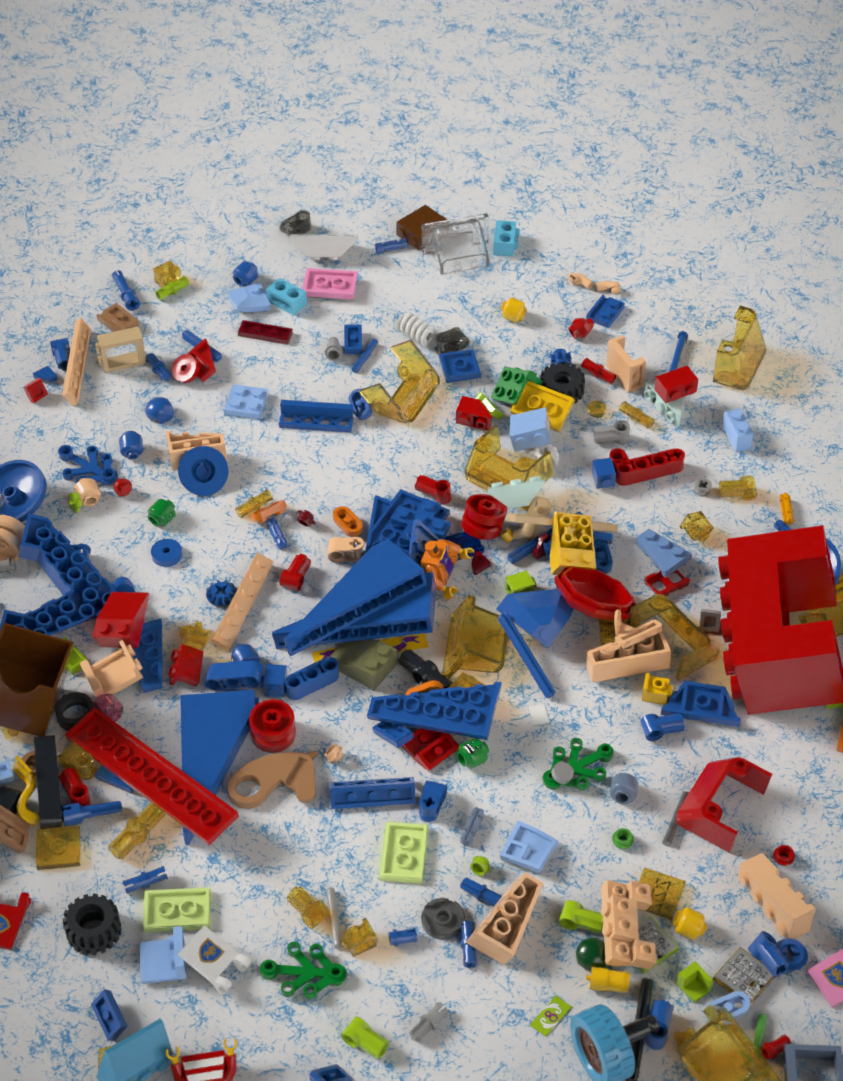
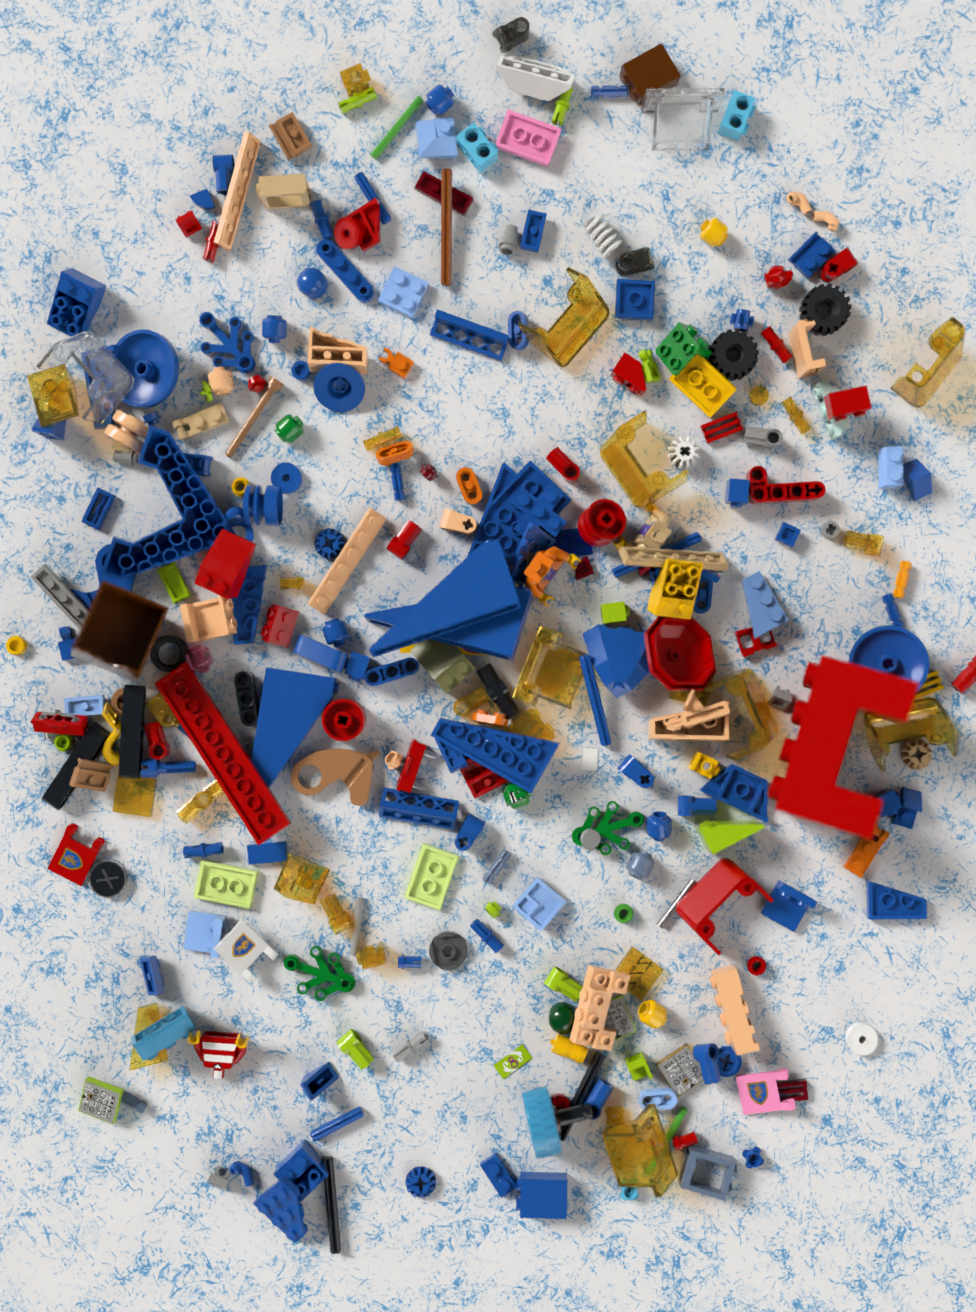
camera: 15 degrees right, 40 degrees up
(41, 933) = (108, 878): none -> black tile
(59, 401) = (211, 247): none -> red pin
(79, 524) = (201, 422): none -> tan plate
(93, 939) = (136, 895): black tyre -> none
(122, 566) = (235, 484): none -> yellow plate
(127, 294) = (307, 99): blue pin -> none
(138, 486) = (273, 386): none -> medium nougat piece
(149, 568) = (260, 505): none -> blue wheel
(162, 472) = (300, 370): none -> blue tile
(165, 731) = (241, 690): none -> black beam
(188, 397) = (345, 271): none -> blue plate
(197, 637) = (294, 600): clear yellow brick -> none
(211, 299) = (397, 127): none -> bright green bar
(217, 869) = (267, 852): none -> blue tile
(254, 450) = (398, 364): none -> orange plate
(261, 881) = (301, 879): none -> clear yellow slope
(274, 350) = (446, 227): none -> dark orange axle
(353, 258) = (561, 106): none -> lime pin
(353, 754) = (411, 766): none -> red piece
(364, 356) = (540, 256): blue piece -> none
(401, 684) = (473, 701): none -> clear yellow piece
(469, 952) = (462, 983): blue pin -> none
(506, 922) = (499, 976): light nougat wedge -> none
(517, 492) = (641, 510): light aqua slope -> none
(530, 429) = (679, 419): light blue brick -> none
(569, 435) = (736, 422): none -> red tile
(588, 708) = (633, 770): none -> blue piece
(630, 749) = (659, 826): none -> blue head
(631, 311) = (839, 265): none -> red piece
(637, 332) = (834, 299): none -> black tyre
(664, 497) = (787, 534): none -> blue plate
(682, 337) = (861, 349): blue bar -> none
(697, 526) = (806, 583): clear yellow brick -> none
(701, 733) = (723, 833): none -> lime slope
(768, 437) = (917, 479): none -> blue slope
(793, 788) = (788, 905): none -> blue bracket

